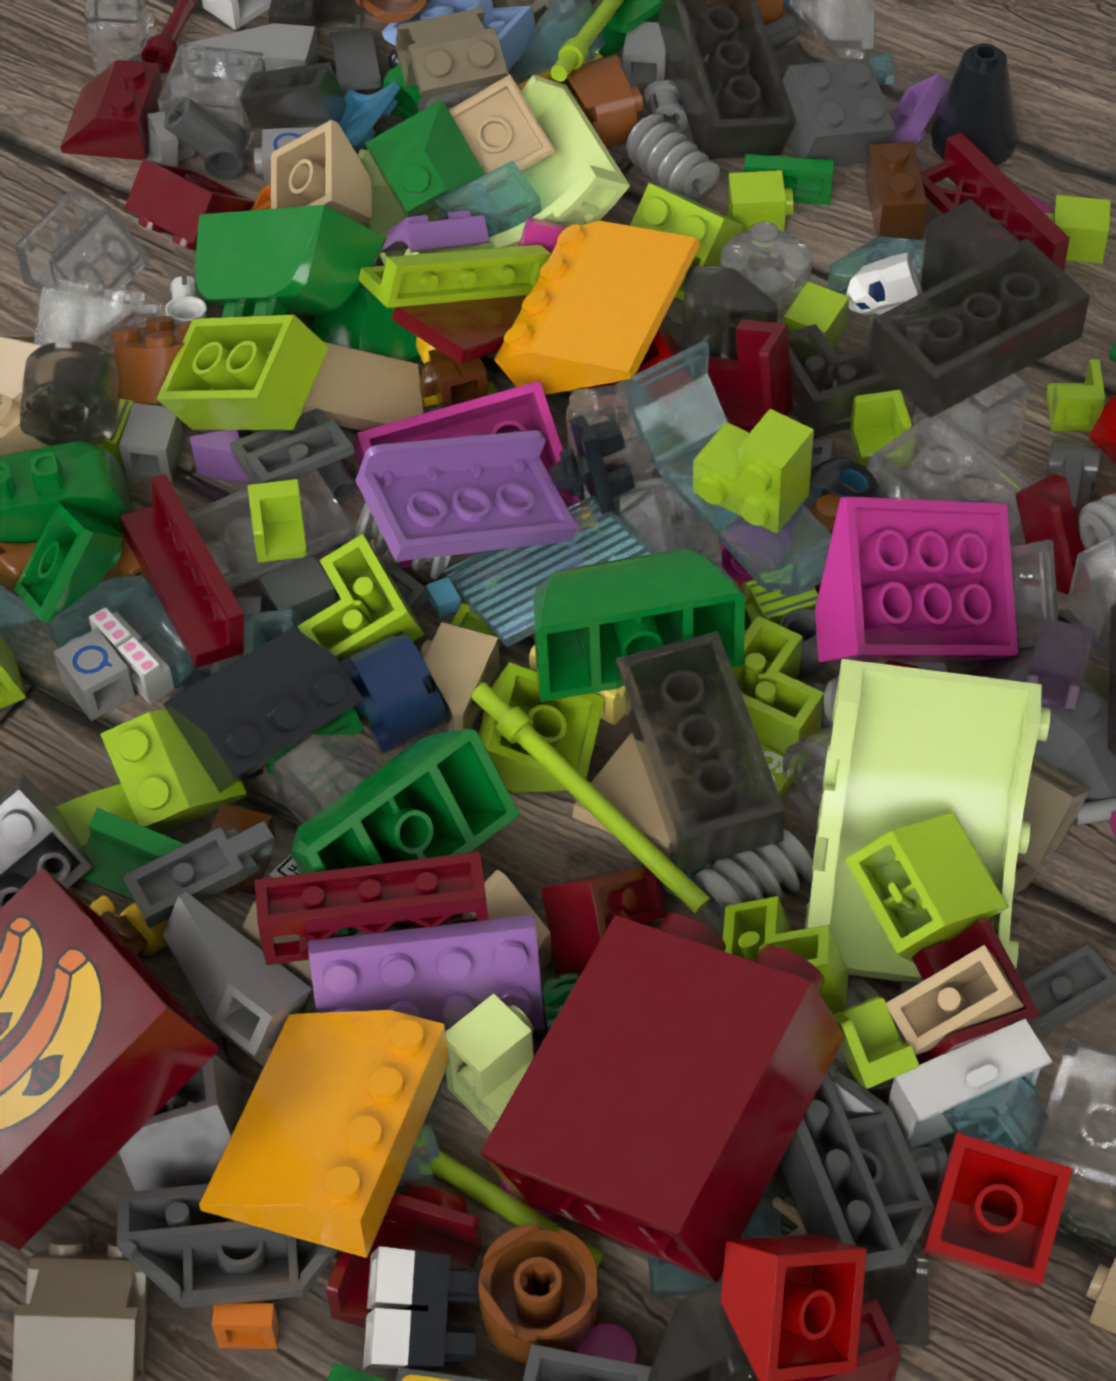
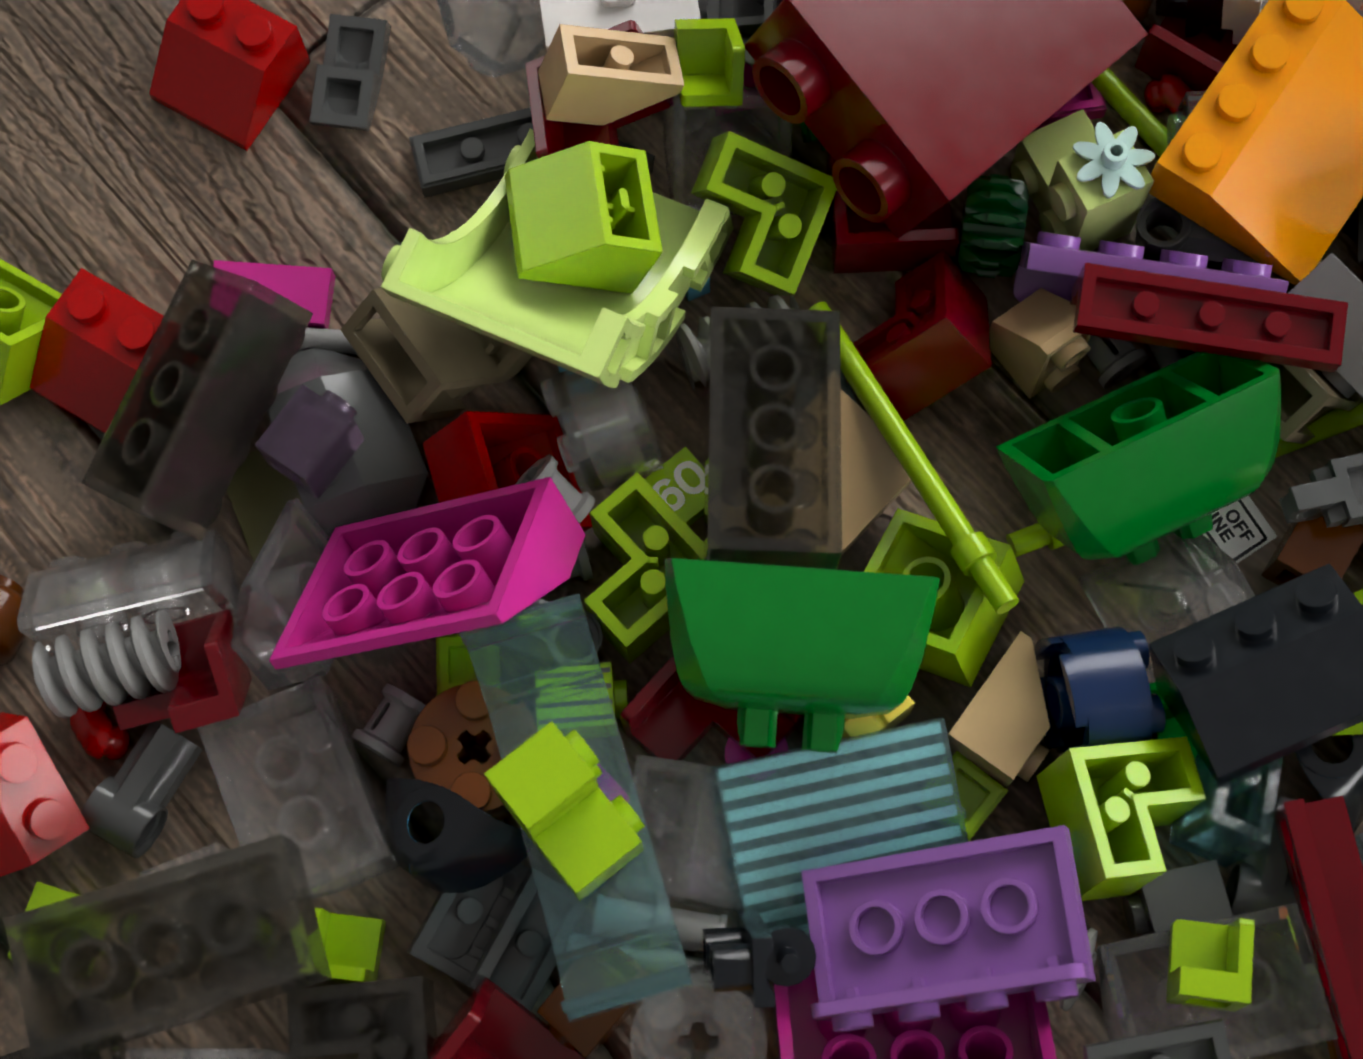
camera: 160 degrees left, 20 degrees up
(483, 1036) = (1113, 159): none -> light aqua plant

